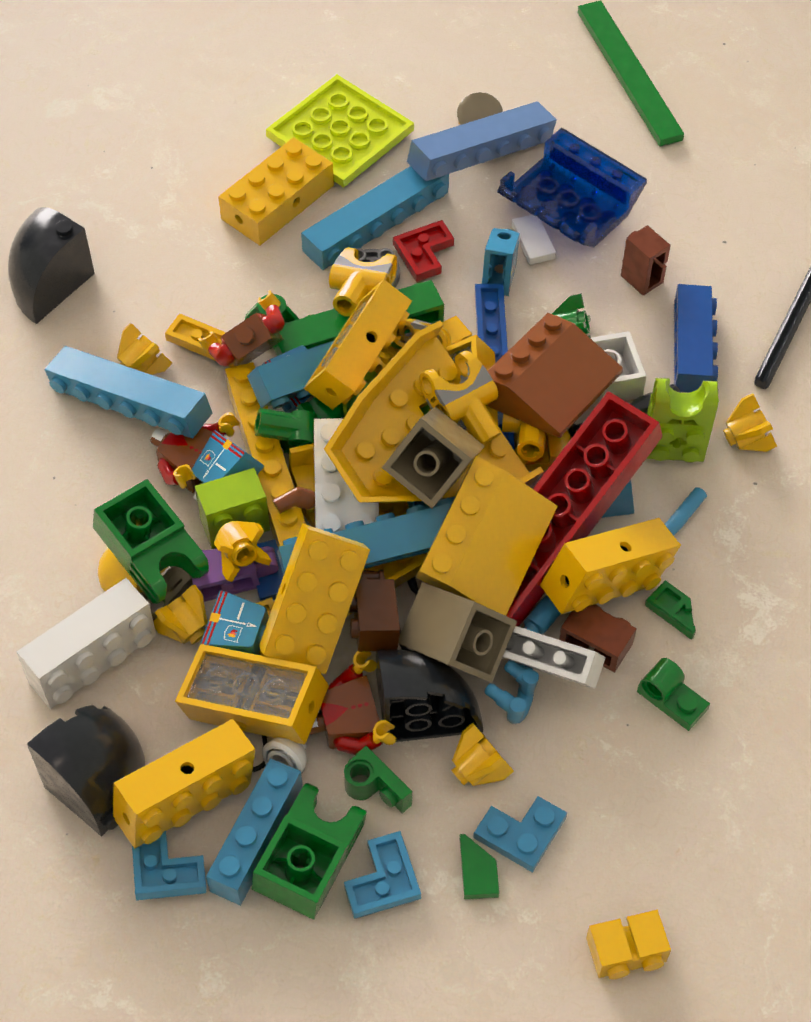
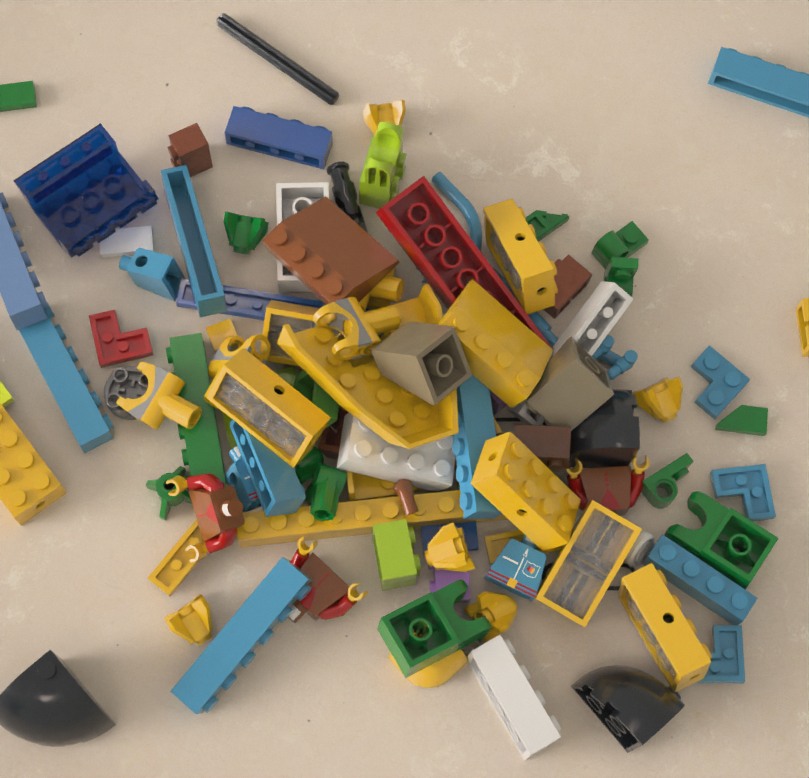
camera: 85 degrees left, 15 degrees up
(222, 459) = (352, 556): dark azure torso -> none
(541, 277) = (193, 241): none -> dark azure brick
(621, 694) = (622, 271): none -> green plate

